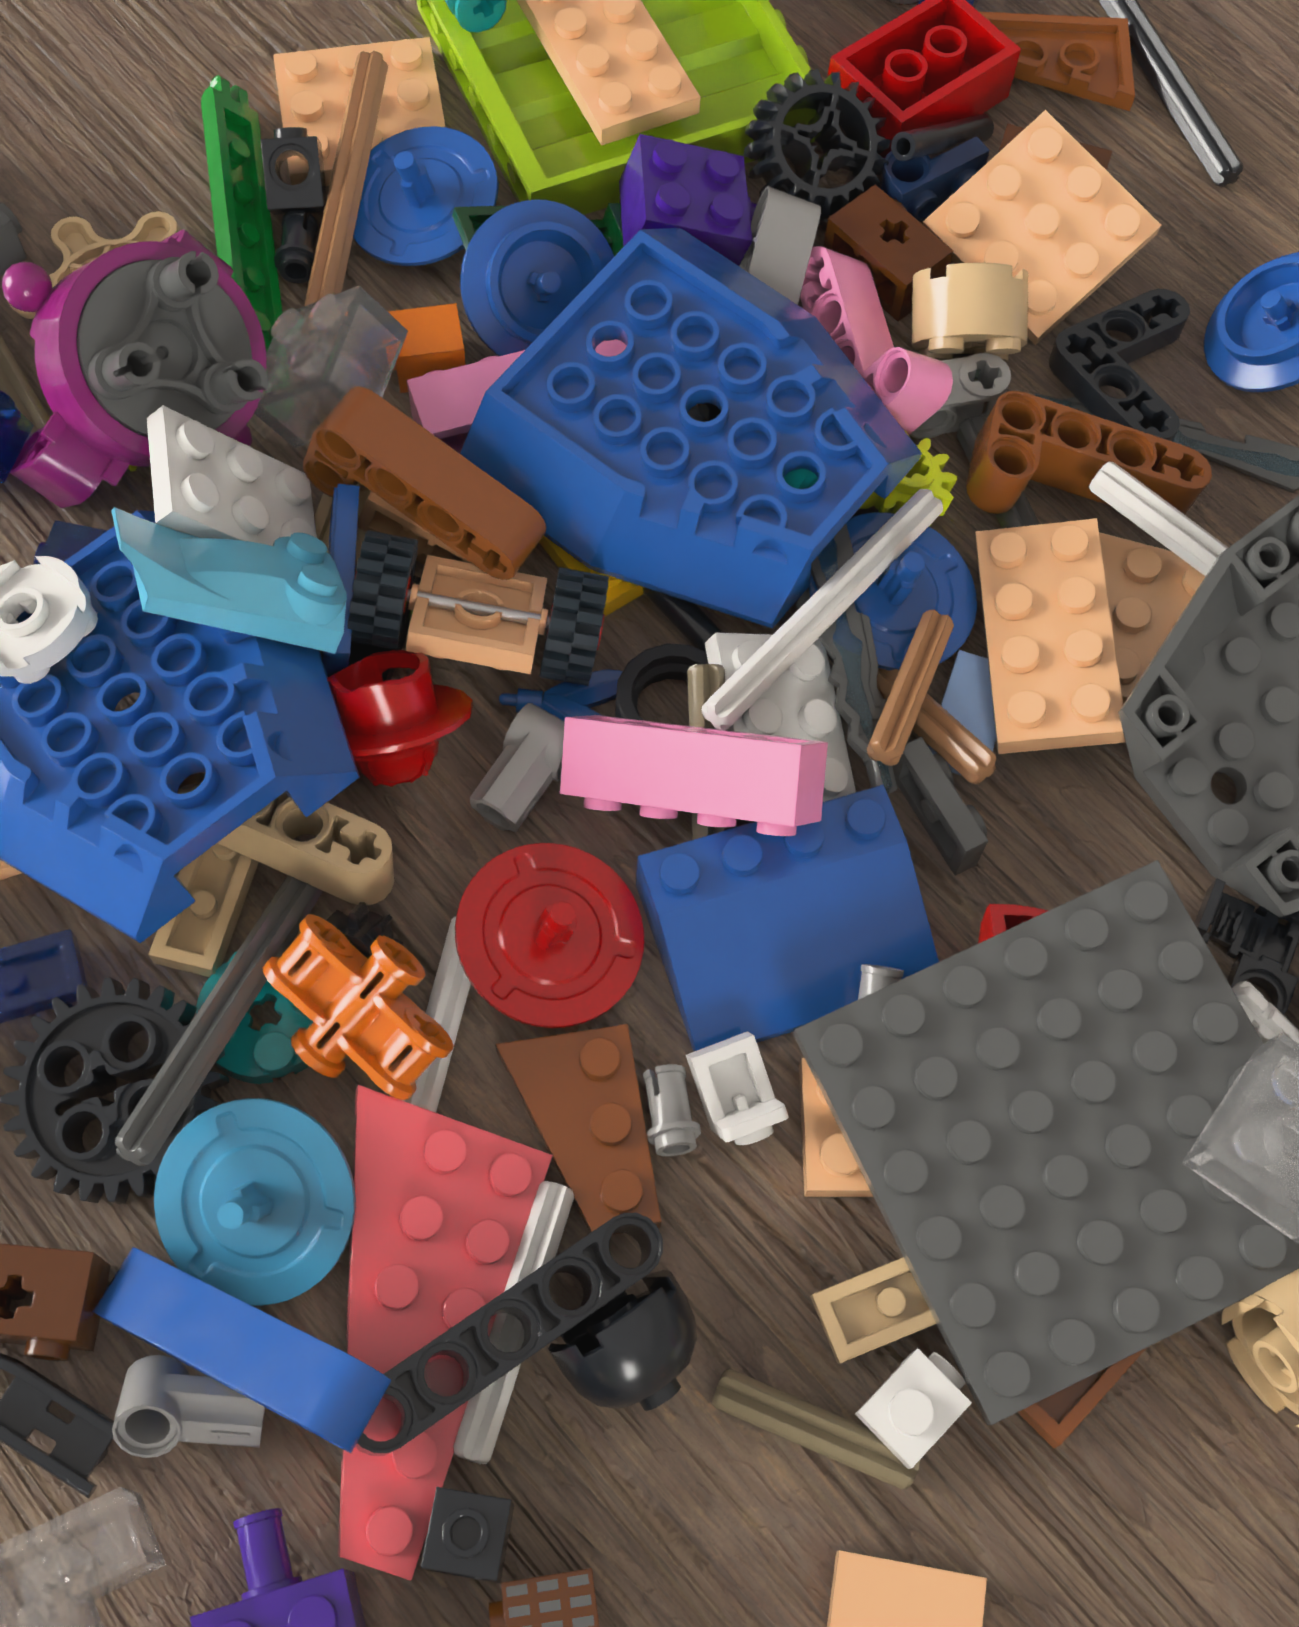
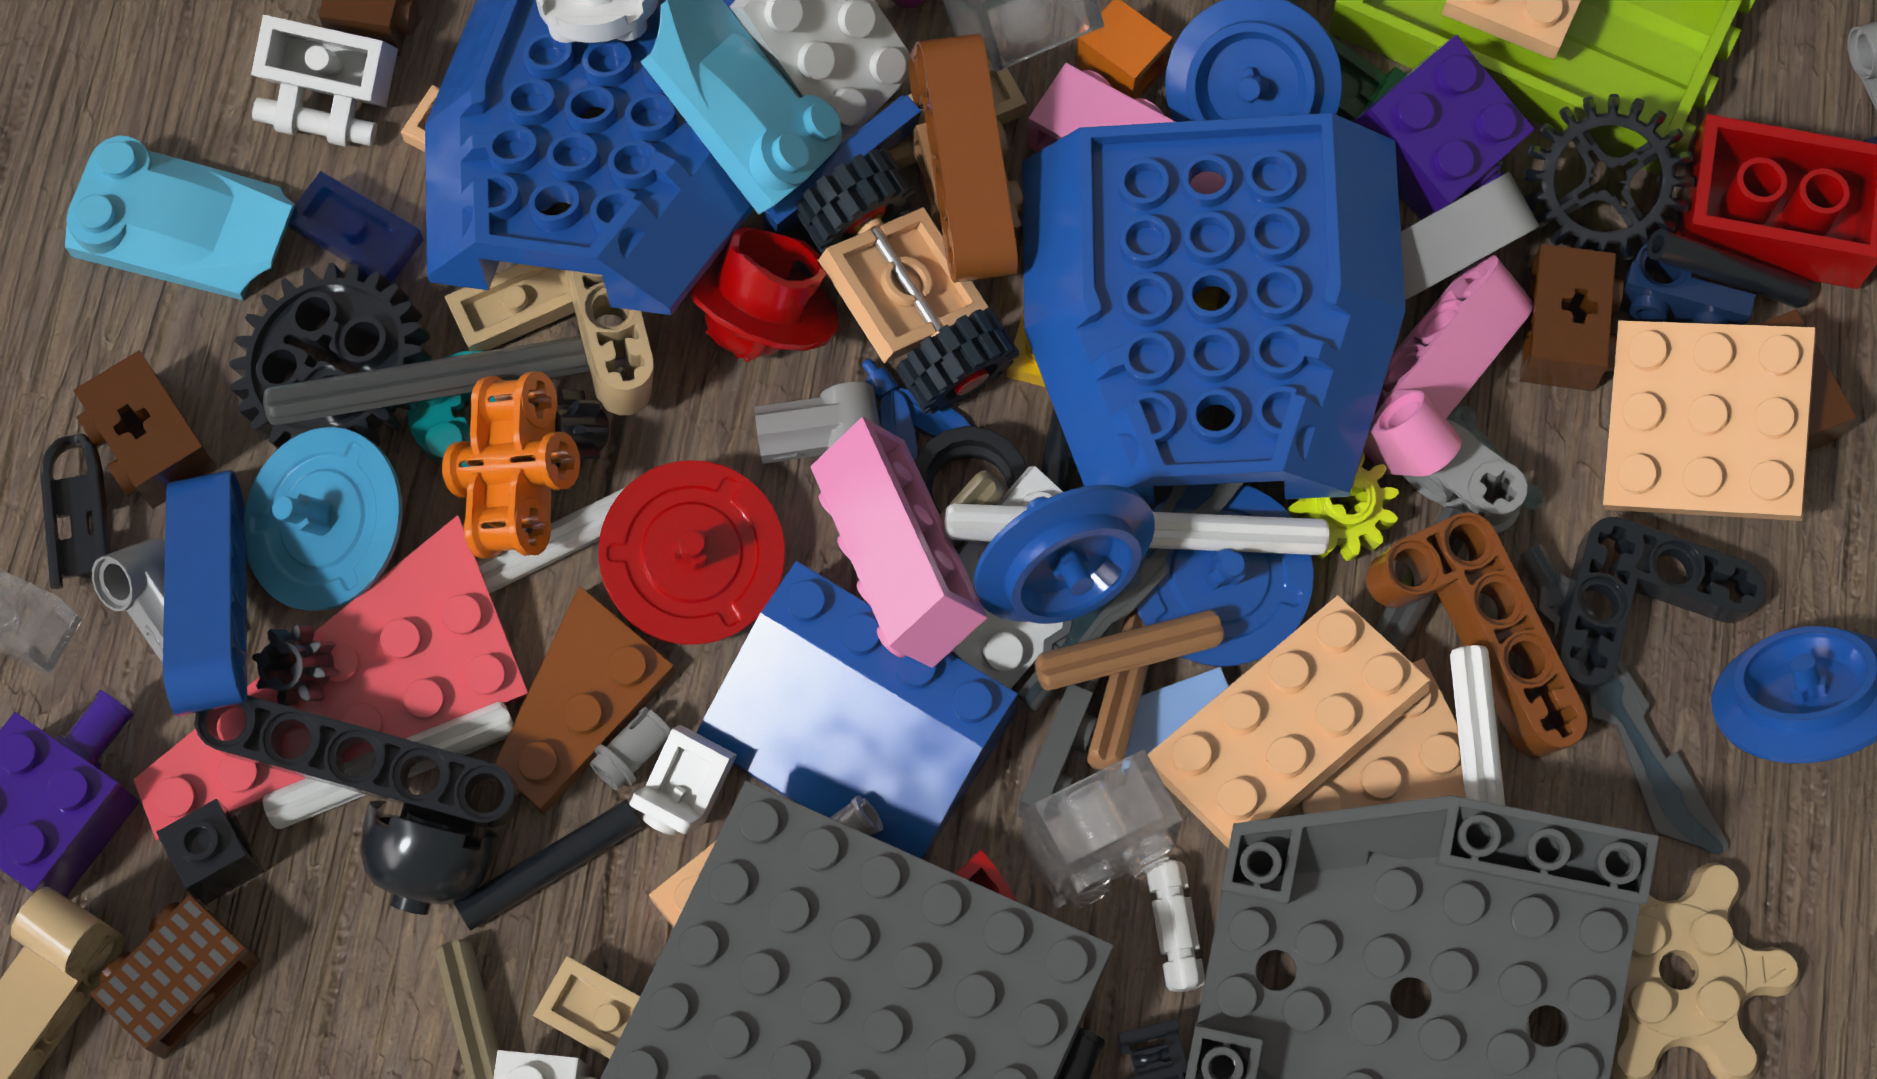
camera: 55 degrees right, 5 degrees up
(397, 1323) = (295, 665): none -> black gear
(713, 1250) = (548, 864): none -> black piece
(829, 649) = (1065, 555): none -> blue piece
(970, 311) = (1548, 429): tan brick -> none
(1039, 813) = (1101, 831): none -> clear brick
(1133, 831) = (1176, 927): none -> white axle

